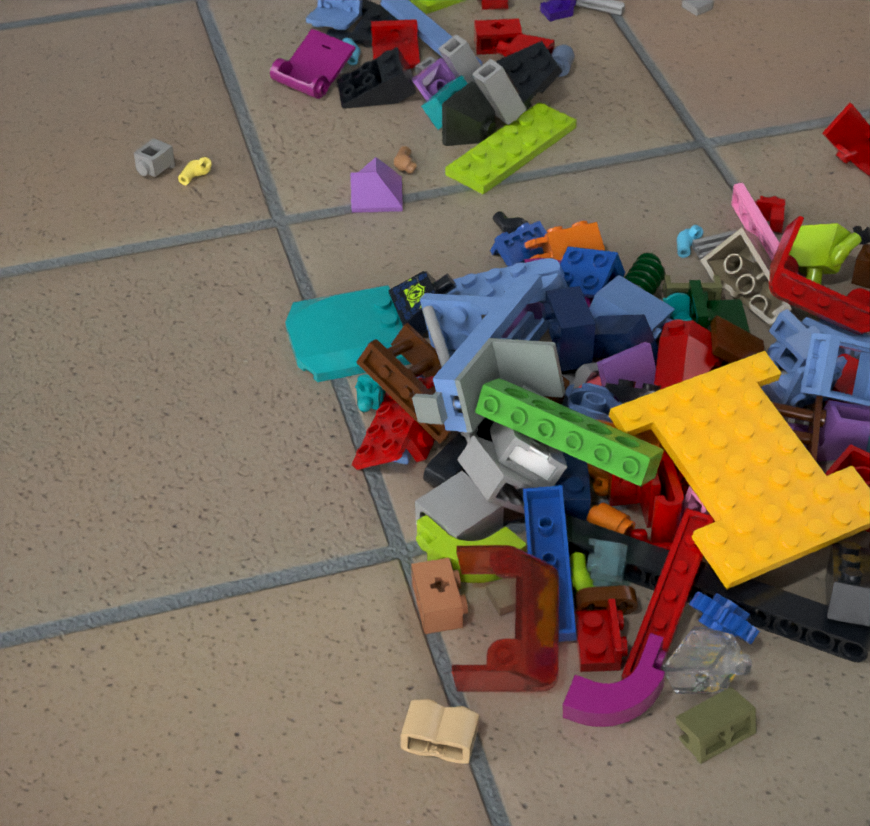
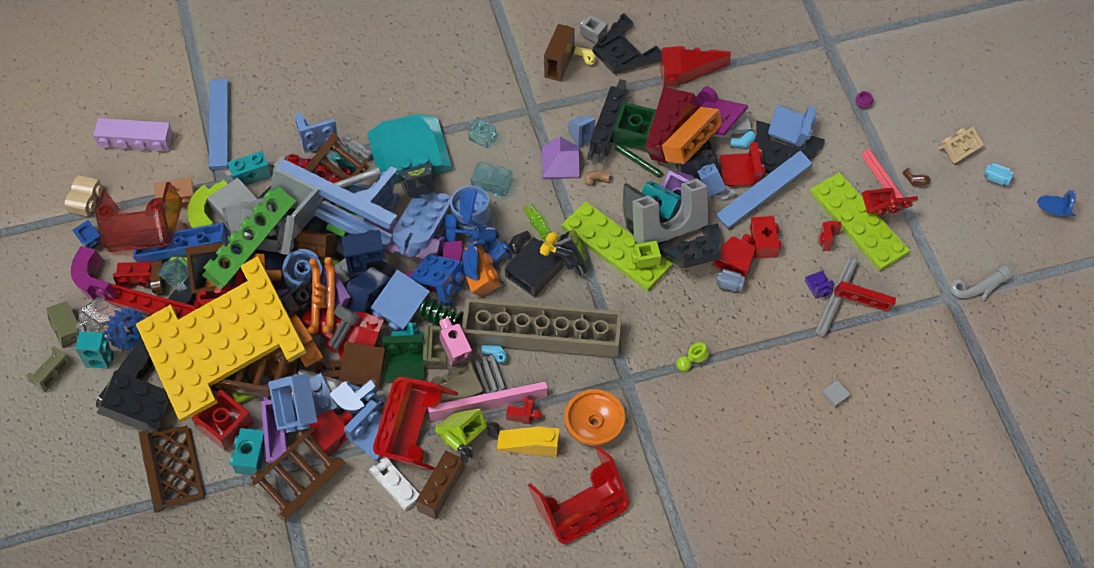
camera: 90 degrees right, 15 degrees up
(194, 141) = (619, 52): none -> black wing
(198, 178) = (559, 52): none -> reddish brown brick
(236, 86) = (683, 65): none -> red wedge
(280, 558) = (218, 124): none -> medium blue tile
(302, 671) = (133, 134): none -> lavender brick
(318, 144) = (603, 133): none -> black hinge
(325, 423) = (315, 135): none -> medium blue bracket
(331, 120) = (633, 125): none -> dark green brick
(332, 161) = (581, 129): none -> medium blue slope
(332, 252) = (482, 133): none -> clear light blue brick
(335, 82) = (671, 113): none -> dark red wedge
(342, 387) = (356, 147): none -> light grey axle
(362, 60) = (692, 135): none -> orange brick
(376, 130) = (641, 162): none -> dark green bar
(388, 500) = (250, 168): none -> teal brick
(410, 245) = (492, 178): none -> clear light blue brick
(417, 58) = (712, 178): none -> medium blue brick
(471, 246) = (481, 210): none -> medium blue wheel
(477, 208) = (537, 220): none -> clear neon green pin
(512, 197) = (481, 233): none -> blue plant
(529, 711) = (87, 234): none -> blue bracket
(530, 166) = (569, 248): none -> black torso
(539, 111) = (646, 254): none -> lime brick
(553, 203) = (532, 269): none -> black brick
(610, 503) = (200, 250): none -> reddish brown window
(651, 366) = (322, 296): none -> orange piece
(652, 192) = (542, 327): none -> dark tan brick
(677, 97) = (697, 353): none -> lime plate
(685, 338) = (348, 319): none -> dark grey piece
(695, 255) = (455, 349): none -> bright pink torso
(773, 656) = (94, 350): none -> teal brick
(774, 149) = (598, 407): none -> orange dish
(809, 735) = (50, 370): none -> olive hinge
(813, 196) = (531, 440): none -> yellow slope

